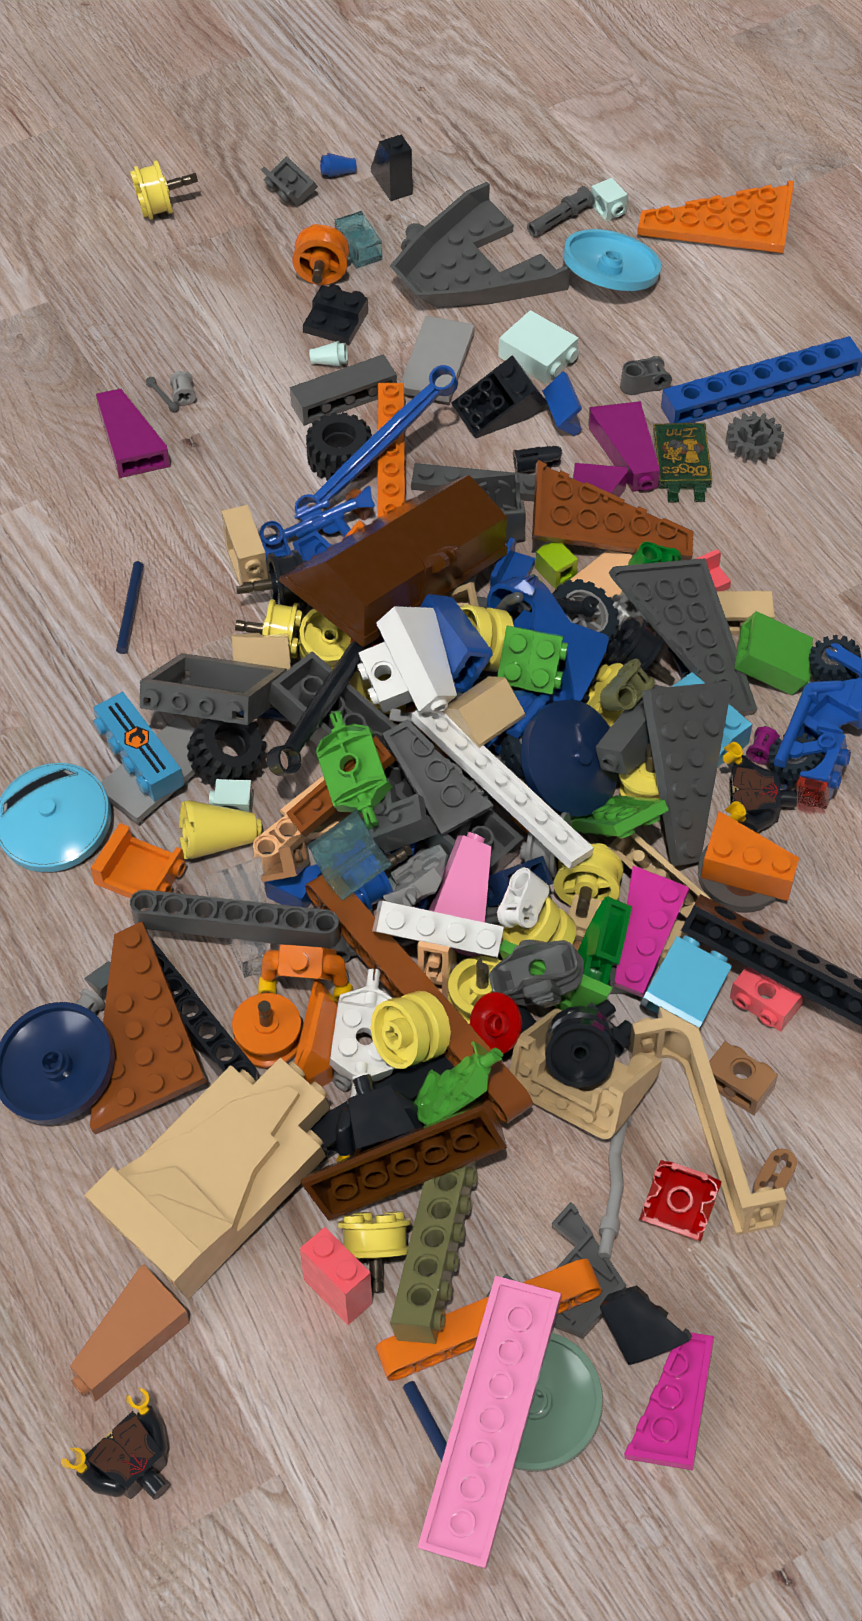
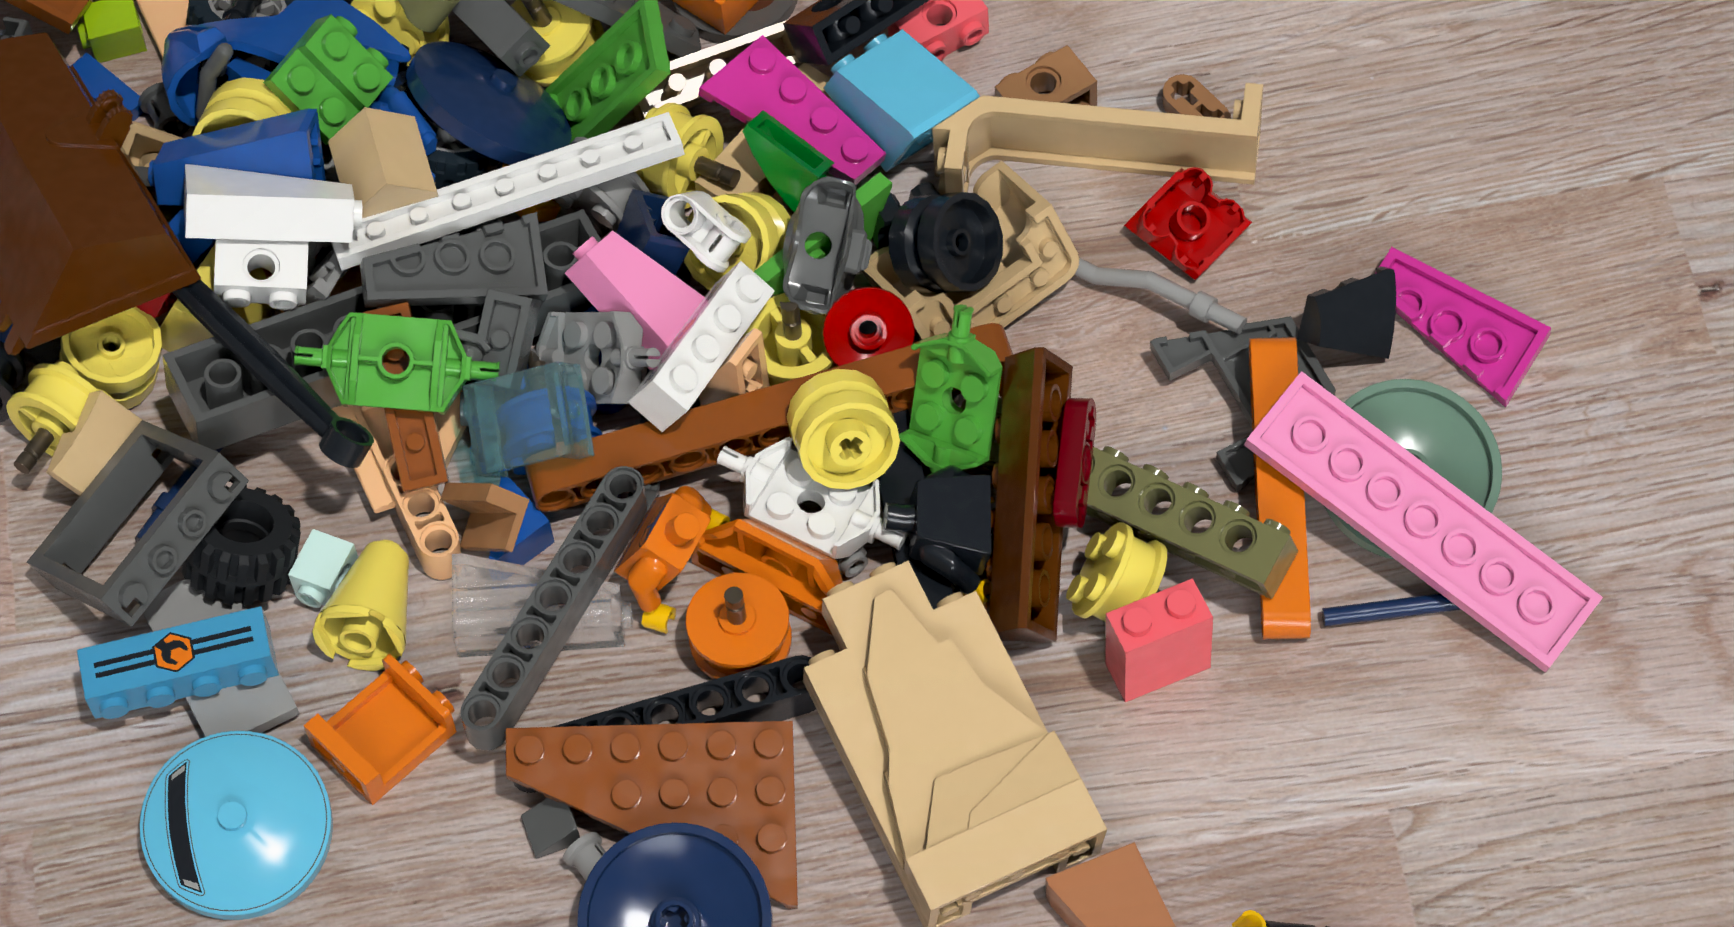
camera: 65 degrees left, 5 degrees up
(421, 1179) = (1074, 463): none -> dark red beam

